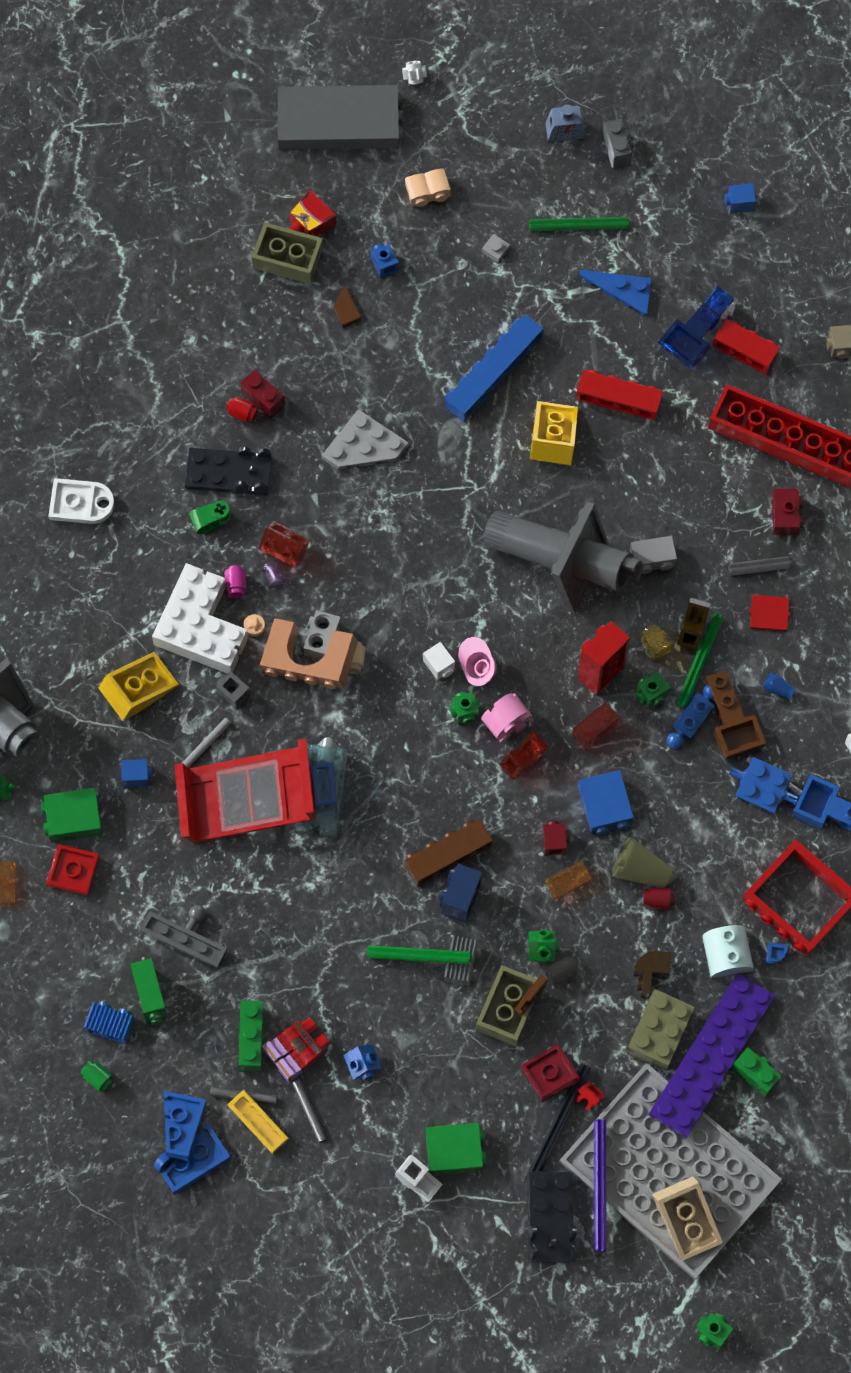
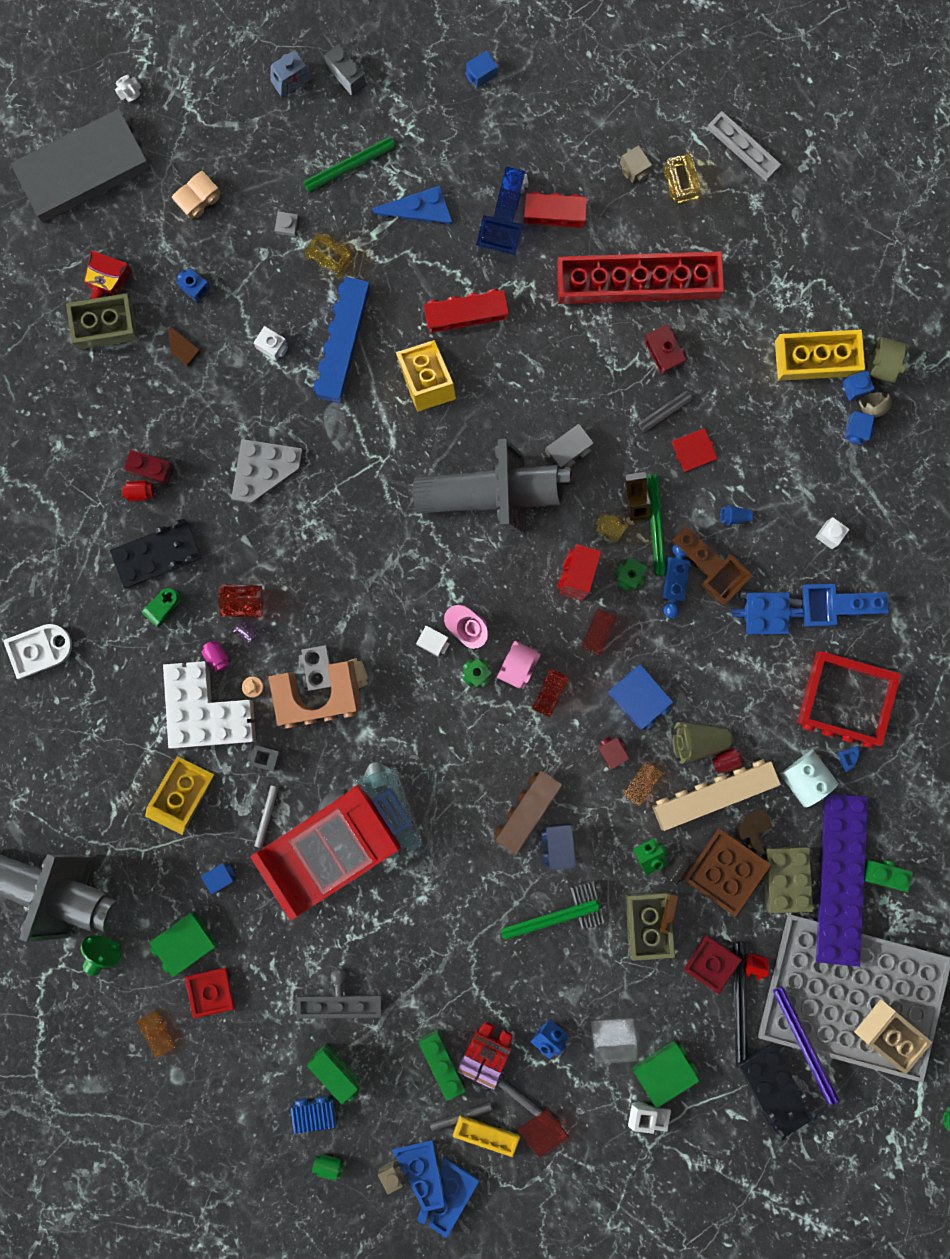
camera: 30 degrees left, 15 degrees up
(152, 1113) = (391, 1176): none -> dark tan brick
(312, 1146) = (543, 1133): none -> clear red piece
(420, 1099) = (614, 1041): none -> clear slope
(427, 341) = (271, 343): none -> white brick
(512, 293) = (325, 261): none -> clear yellow window
(606, 993) = (727, 872): none -> reddish brown plate
(631, 923) = (716, 795): none -> tan brick

